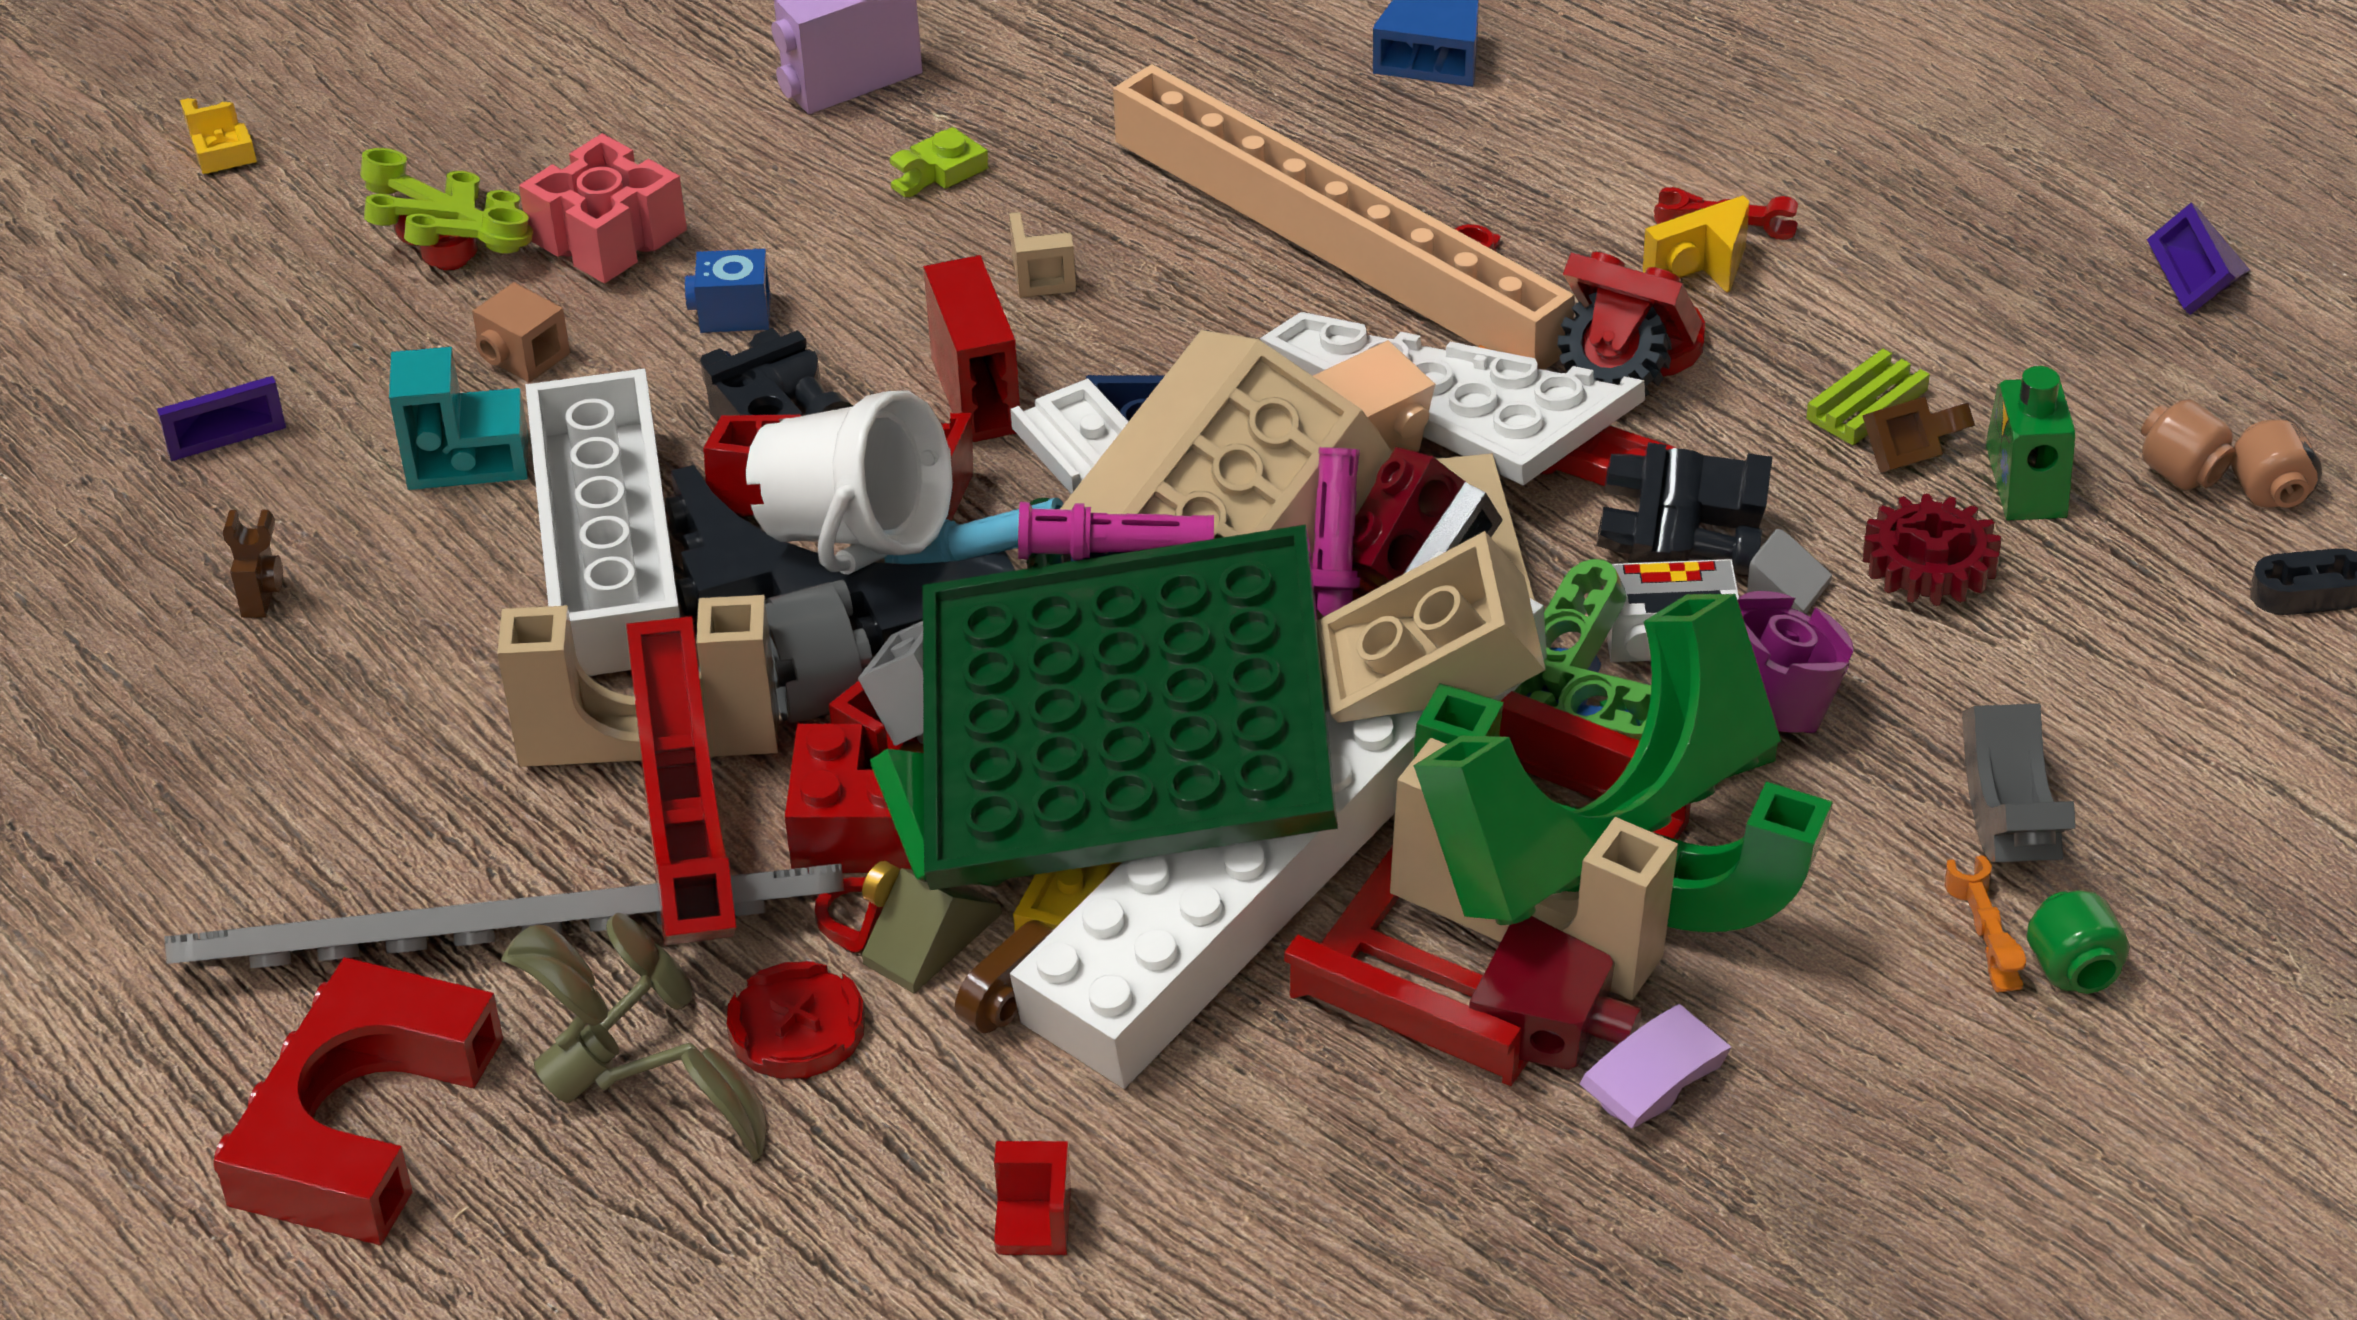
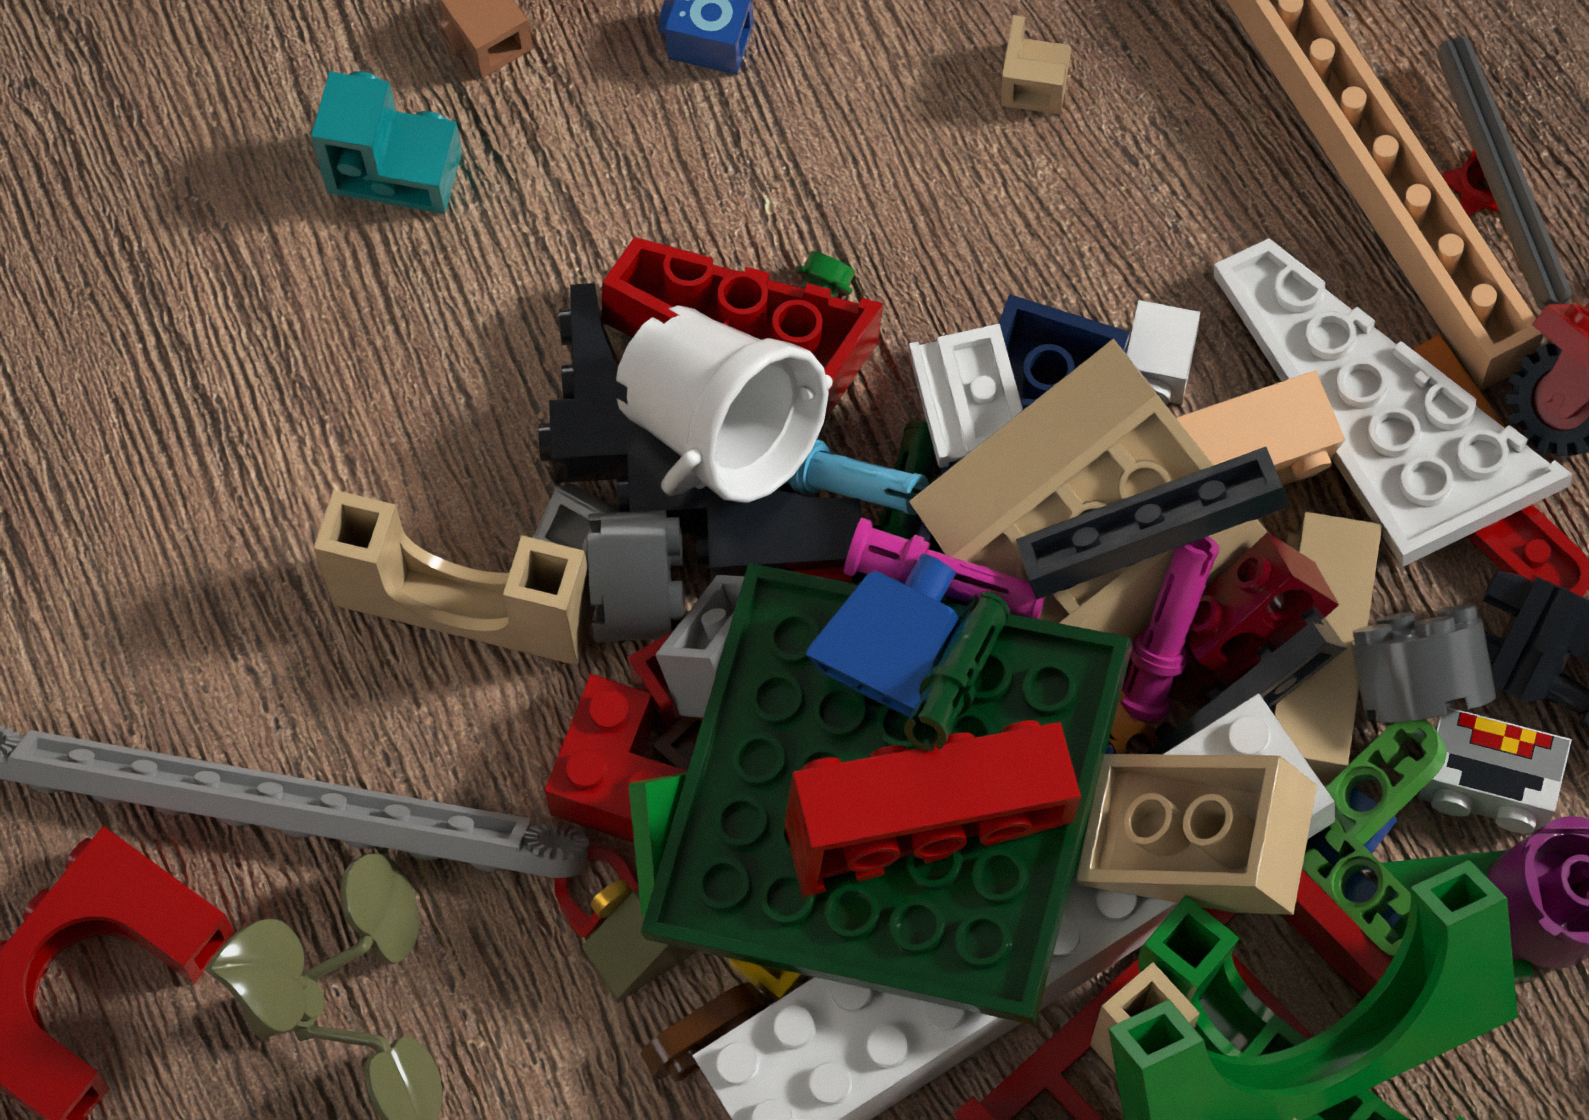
camera: 20 degrees right, 25 degrees up
(221, 418) = (167, 49): dark purple slope -> none
(254, 568) = (148, 279): reddish brown plate -> none
(601, 510) = (489, 327): white brick -> none
(679, 783) = (448, 773): red arch -> none
(767, 378) = (703, 173): black hips -> none
(795, 1020) = (499, 1005): red tile -> none
(972, 345) = (914, 203): red brick -> none
(1085, 577) = (889, 635): none -> blue torso
(1158, 562) = (949, 686): none -> dark green pin
(1162, 670) = (927, 801): none -> red wedge
(1307, 425) = (1152, 522): none -> black plate
(1475, 215) = (1503, 173): none -> dark grey axle
(1573, 521) = (1422, 666): none -> dark grey brick

